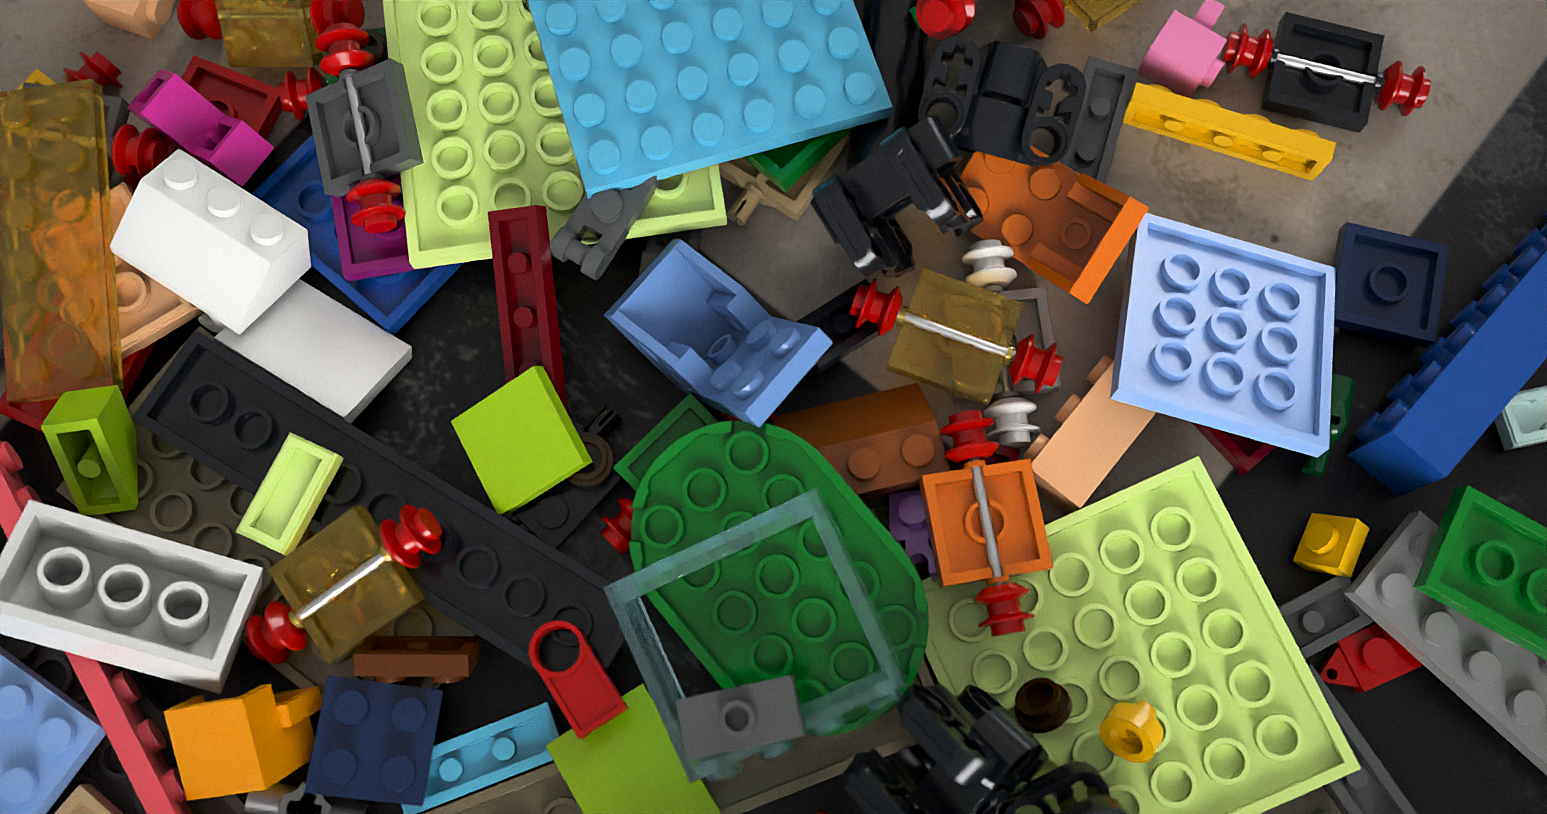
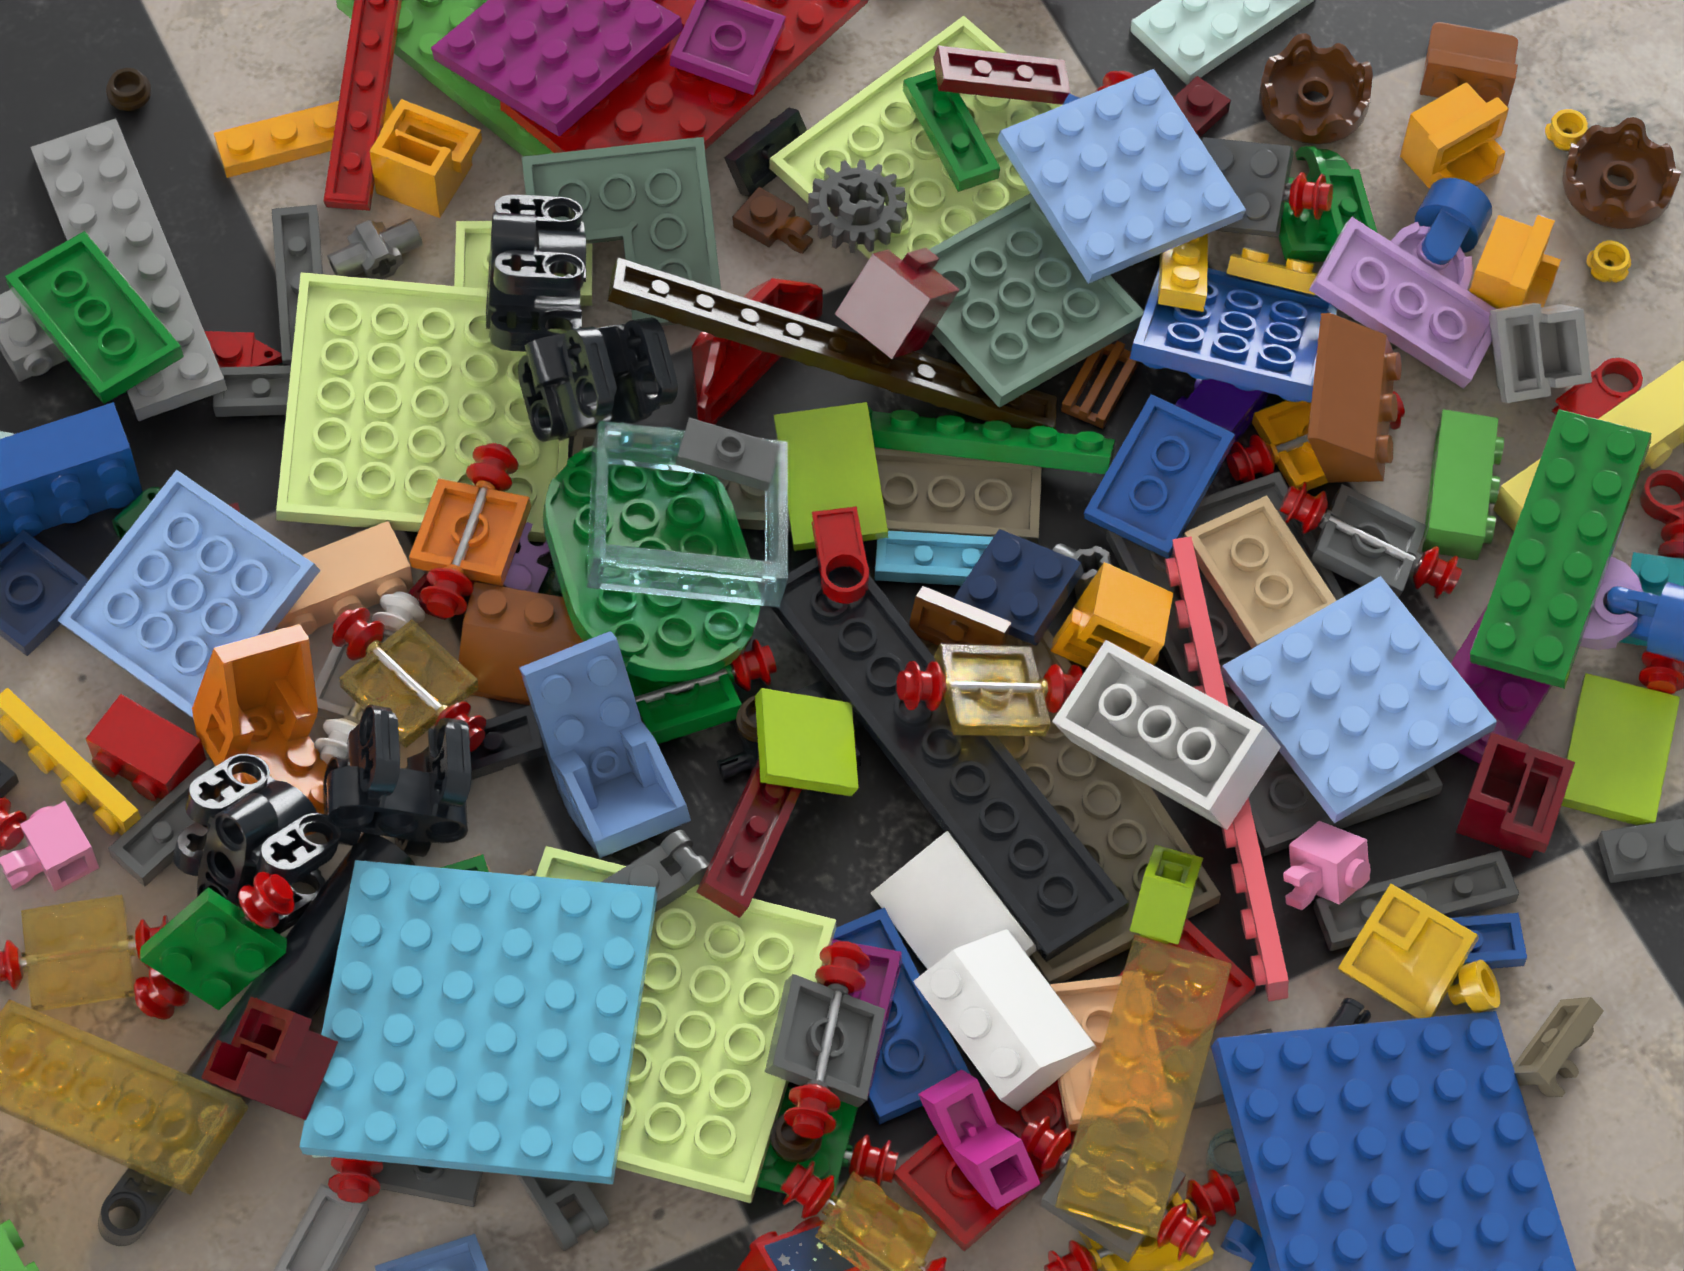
camera: 160 degrees left, 15 degrees down
(290, 494) = (1012, 779): yellowish green tile -> none
(1042, 705) = (501, 401): dark brown plate -> none
(1132, 731) = (446, 357): yellow tile -> none
(1170, 174) = (143, 749): none -> red brick
(1331, 544) = (210, 430): yellow plate -> none

